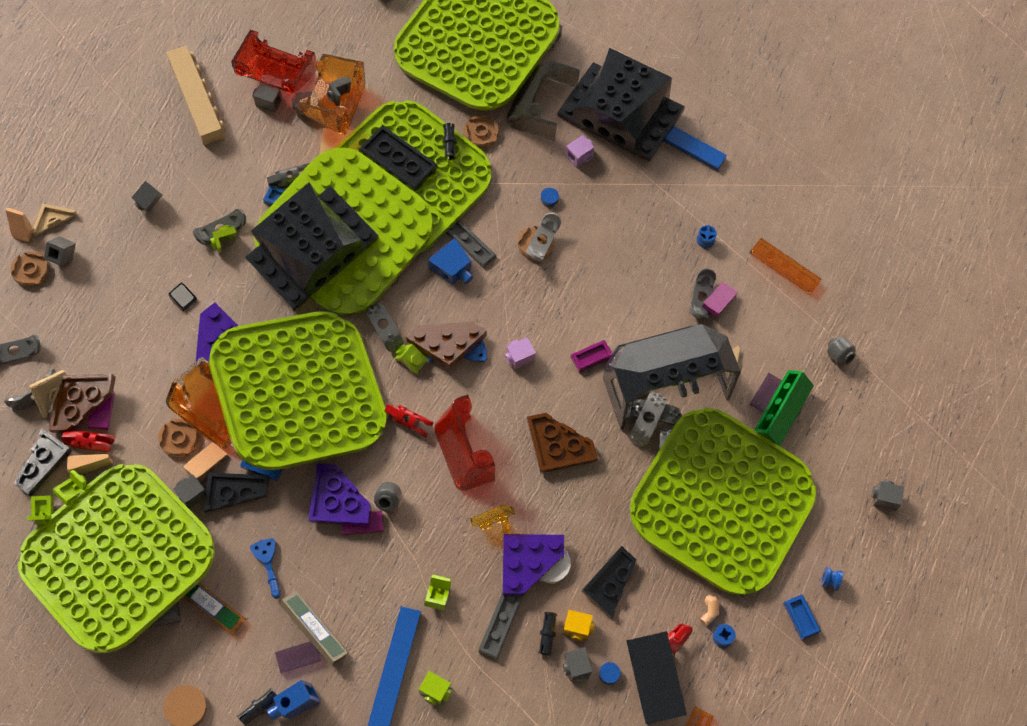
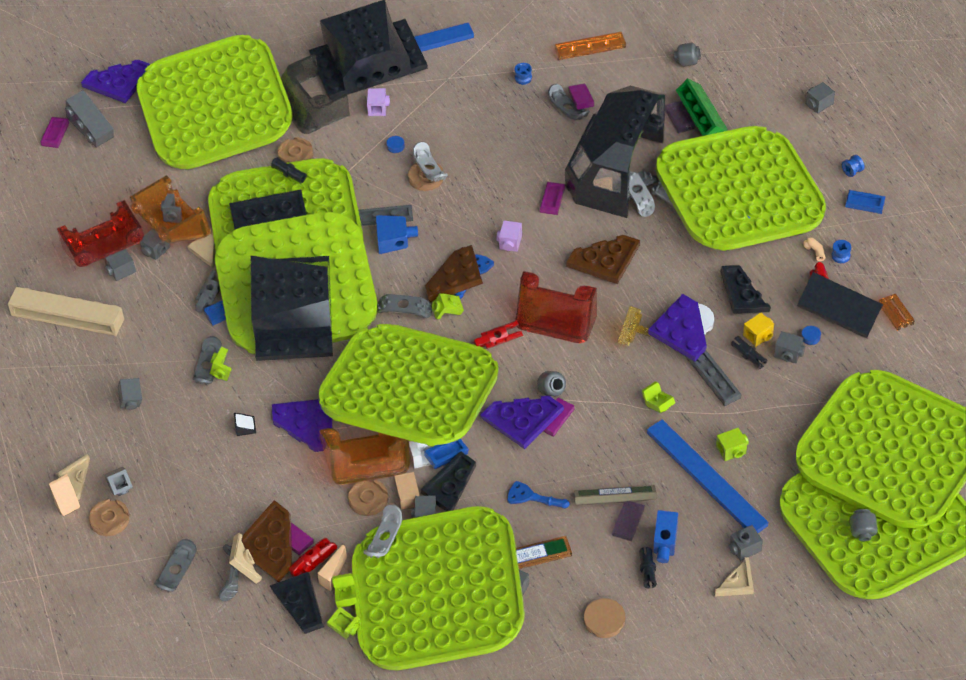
camera: 45 degrees left, 15 degrees down
(123, 484) = (390, 523): none -> light grey piece

